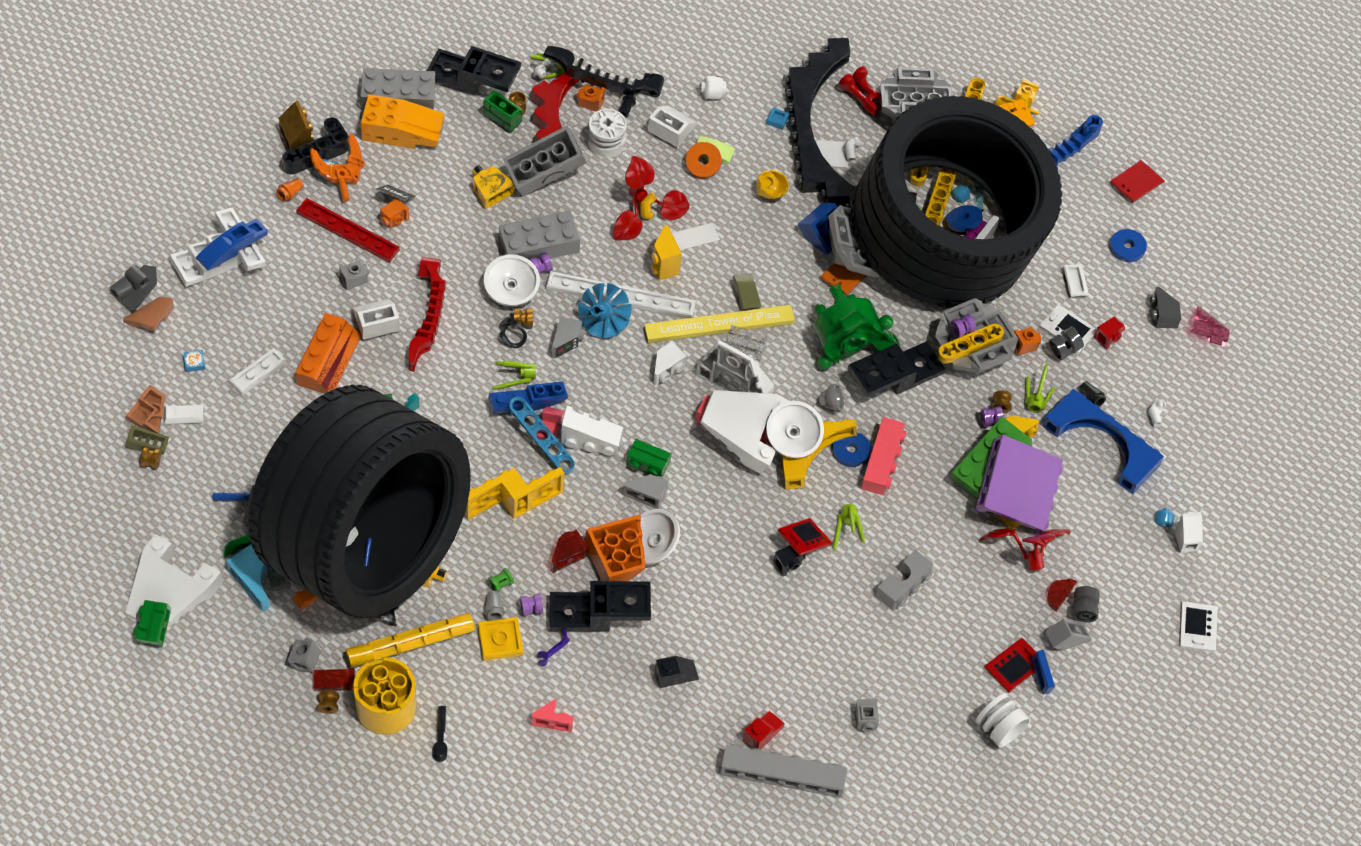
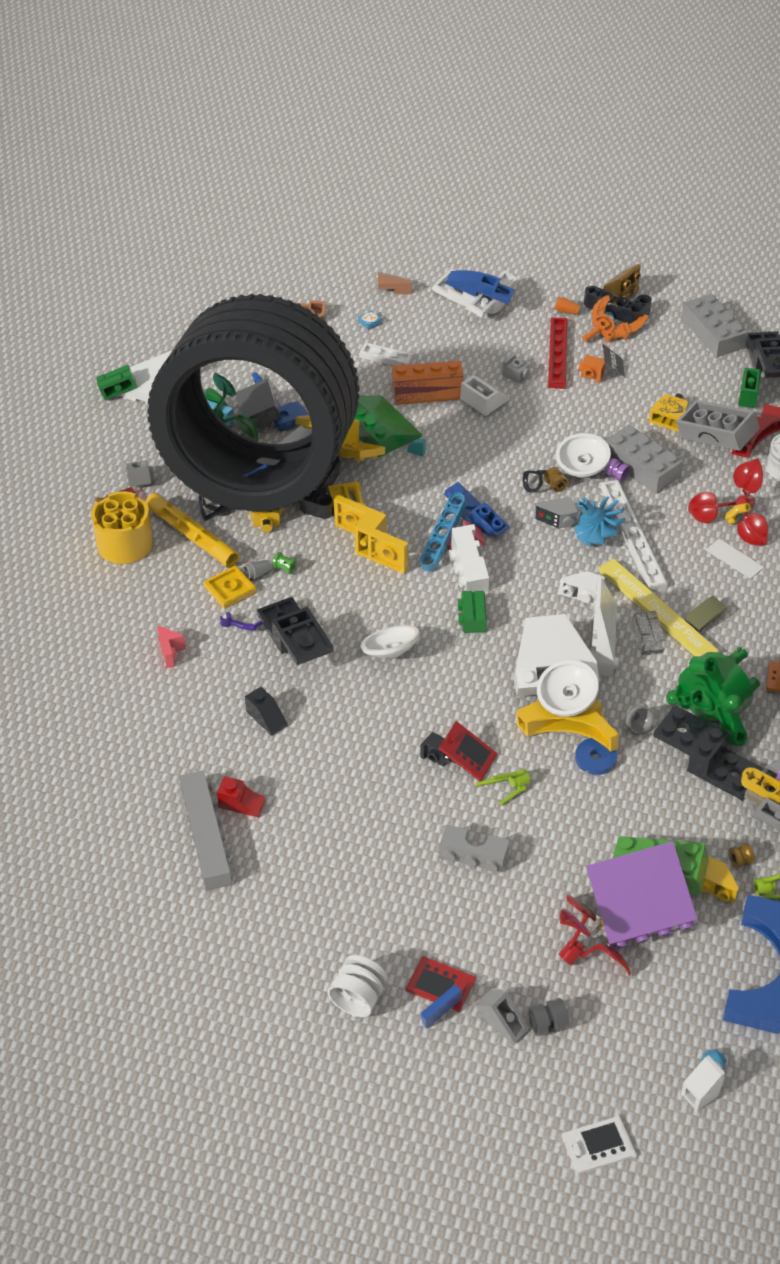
camera: 70 degrees right, 10 degrees down
(134, 286) = (415, 265): dark grey panel -> none
(400, 123) = (681, 334): light orange piece -> none
(425, 336) = (475, 429): red piece -> none
(440, 747) = (99, 590): black piece -> none
(519, 99) = (768, 395): pearl gold wheel -> none
(527, 371) = (504, 502): lime plant -> none
(531, 604) = (272, 590): medium lavender wheel -> none
(568, 550) = (341, 593): clear red slope -> none
(617, 549) = (360, 620): orange wedge -> none
(647, 490) = (441, 623): light grey slope -> none
(666, 255) = (692, 538): yellow slope -> none
(866, 723) = (303, 873): light grey window -> none
(883, 456) = (603, 780): coral brick -> none
(990, 416) = (717, 851): medium lavender wheel -> none
(1059, 592) = (552, 989): clear red tile -> none

